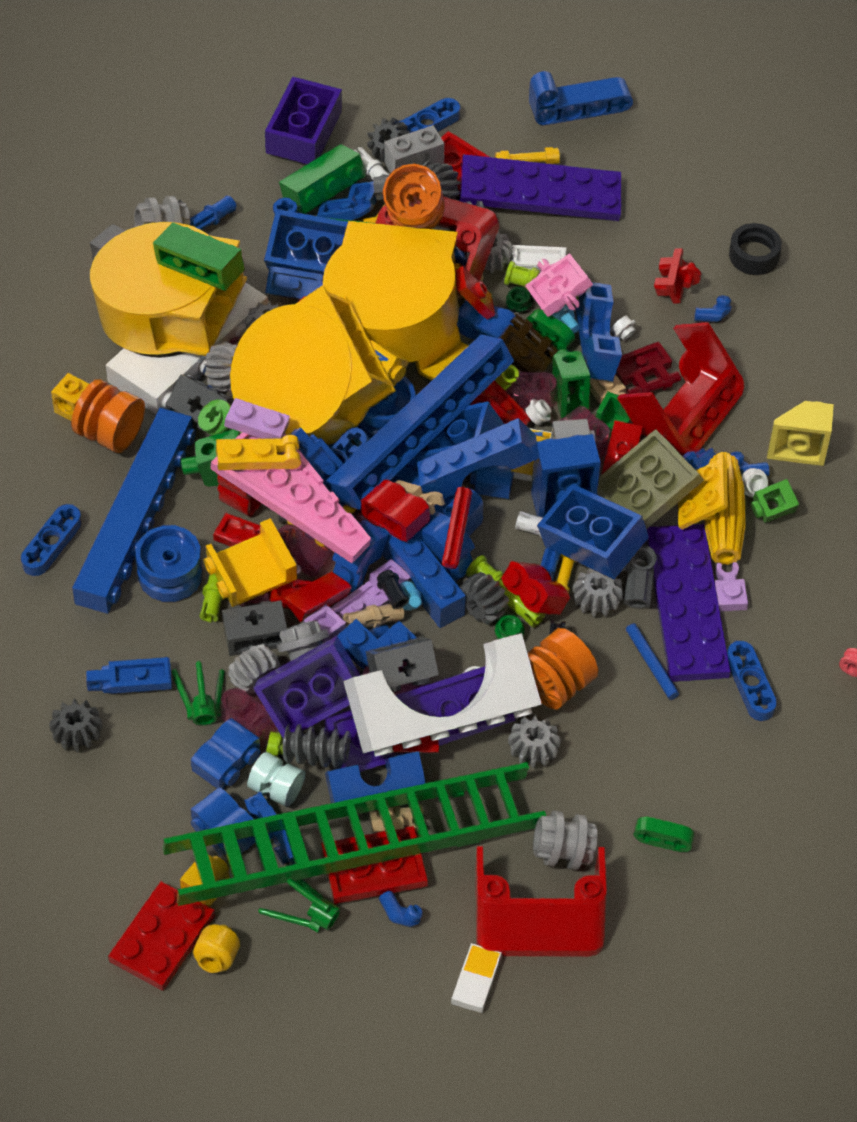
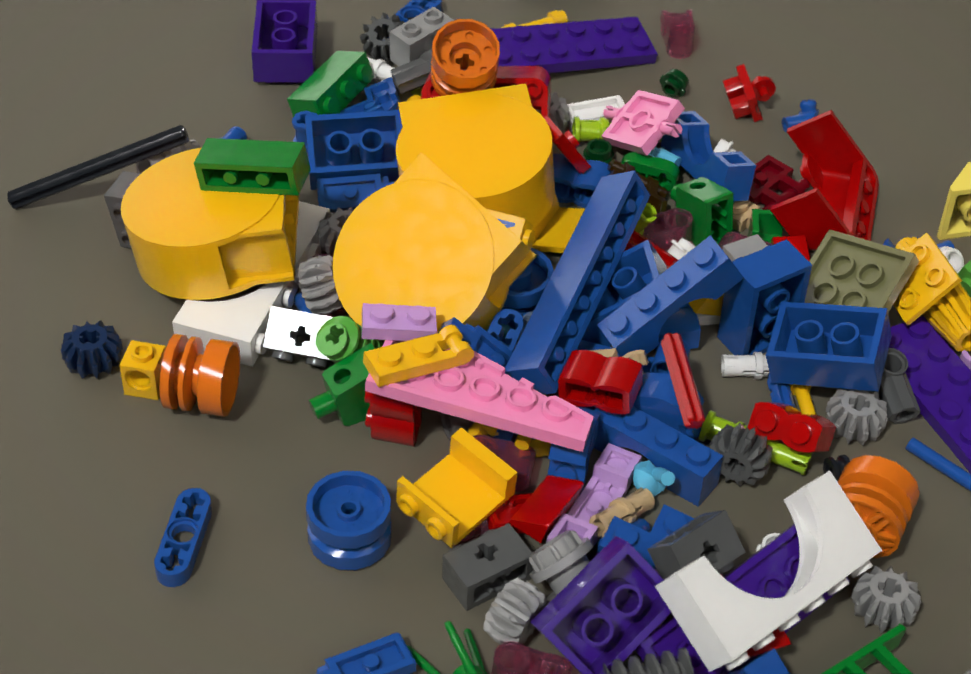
camera: 20 degrees left, 10 degrees down
(41, 369) = (91, 349): none -> dark blue gear
(101, 210) = (98, 167): none -> black axle
(133, 511) = (274, 480): blue brick -> none
(211, 601) = (416, 542): lime pin -> none
(235, 530) = (411, 462): red plate -> none
(393, 590) = (633, 472): black pin -> none
(508, 626) = (781, 482): green plate -> none
(619, 248) = (674, 83): none -> dark green plate
(650, 197) = (678, 33): none -> clear pink piece
(755, 233) = (807, 66): black tyre -> none

